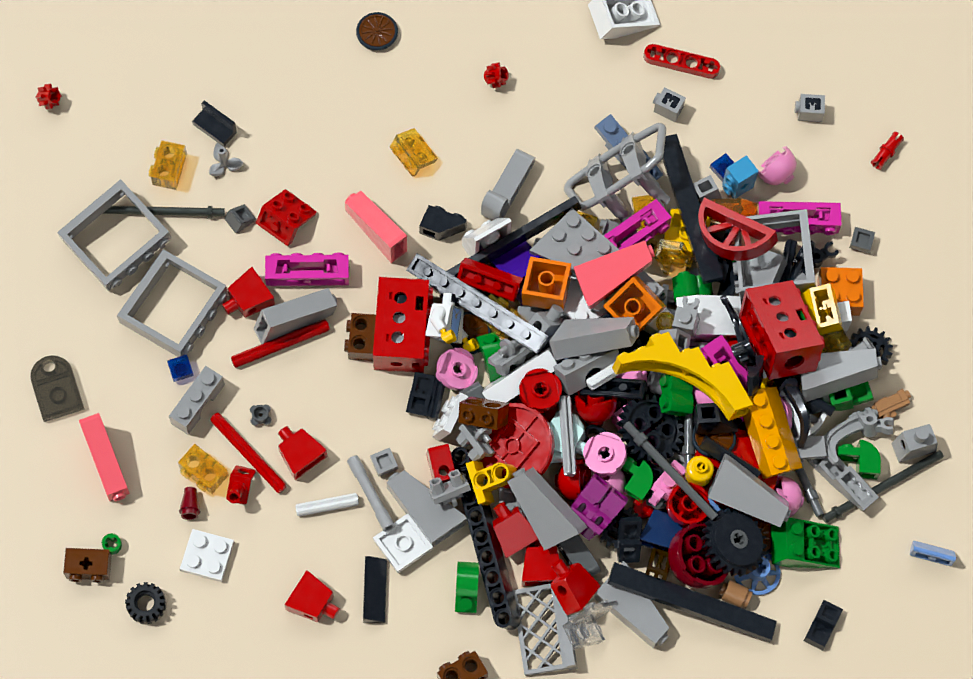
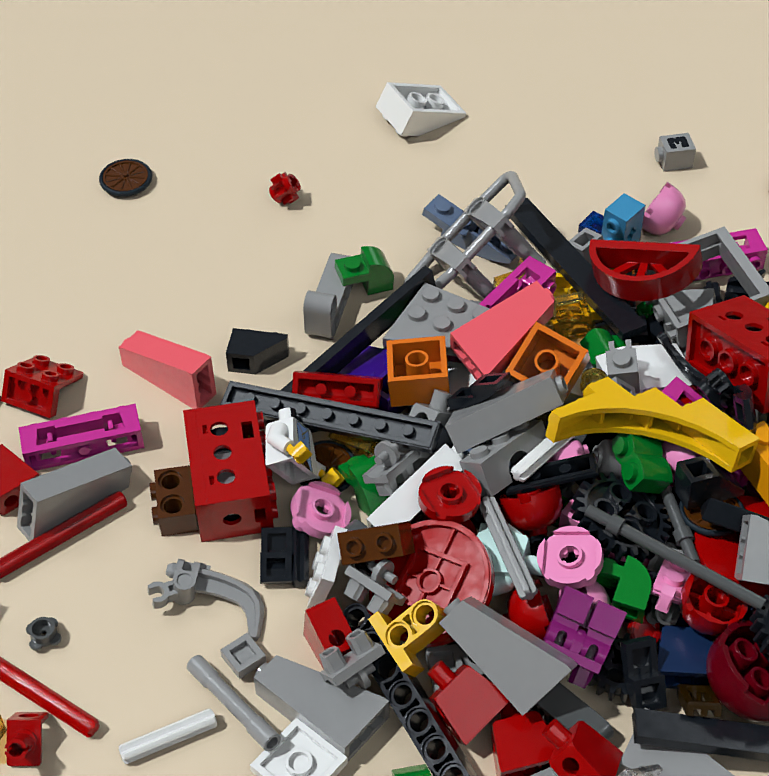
camera: 10 degrees left, 20 degrees down
(300, 451) = (113, 668): red torso -> none
(367, 400) = (198, 578): none -> light grey piece
(412, 151) = (197, 283): clear yellow bracket -> none
(486, 235) = (319, 338): white slope -> none
(540, 172) = (369, 268): none -> green brick
(580, 317) = (478, 391): none -> black slope
(669, 104) = (499, 168): light grey brick -> none
(680, 64) = (476, 140): red beam -> none
(699, 470) = (714, 549): yellow head -> none

